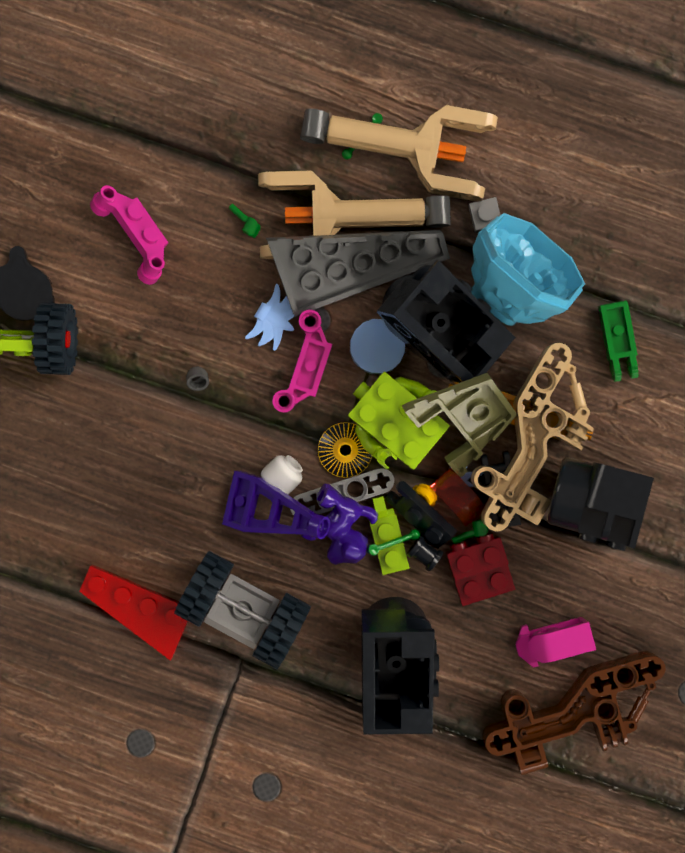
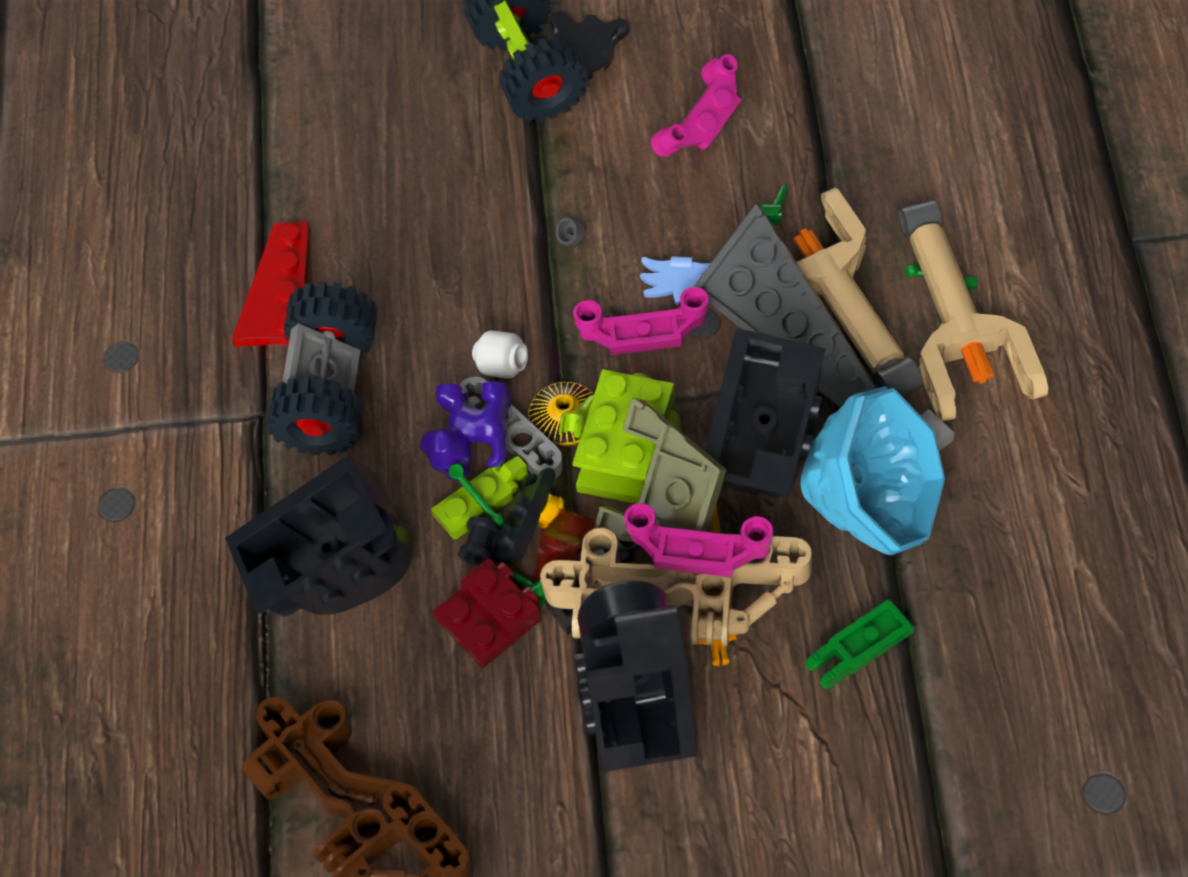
camera: 80 degrees right, 30 degrees down
(243, 502) = (456, 358): dark purple plate -> none
(376, 347) = (698, 388): light blue tile -> none
(532, 420) = (698, 550): none -> dark pink plate
(555, 641) = (436, 736): dark pink piece -> none

